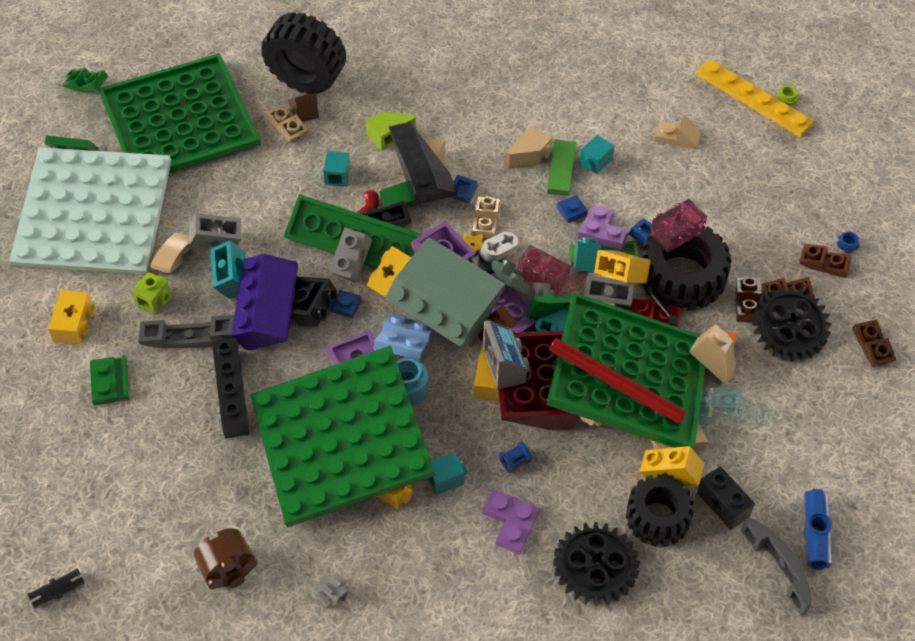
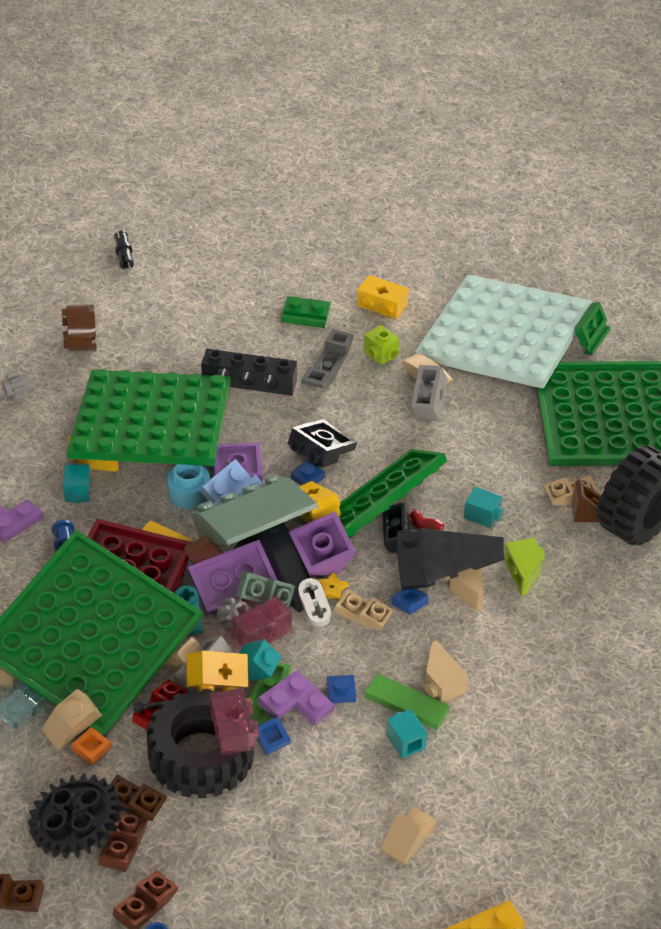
camera: 110 degrees right, 10 degrees down
(227, 268) = (393, 391): teal brick -> none
(264, 301) = (331, 408): dark purple slope -> none
(350, 255) = (352, 477): light grey brick -> none
(504, 355) = (150, 520): light grey slope -> none
(546, 305) = (210, 602): green slope -> none
(617, 381) = (71, 598): red axle -> none

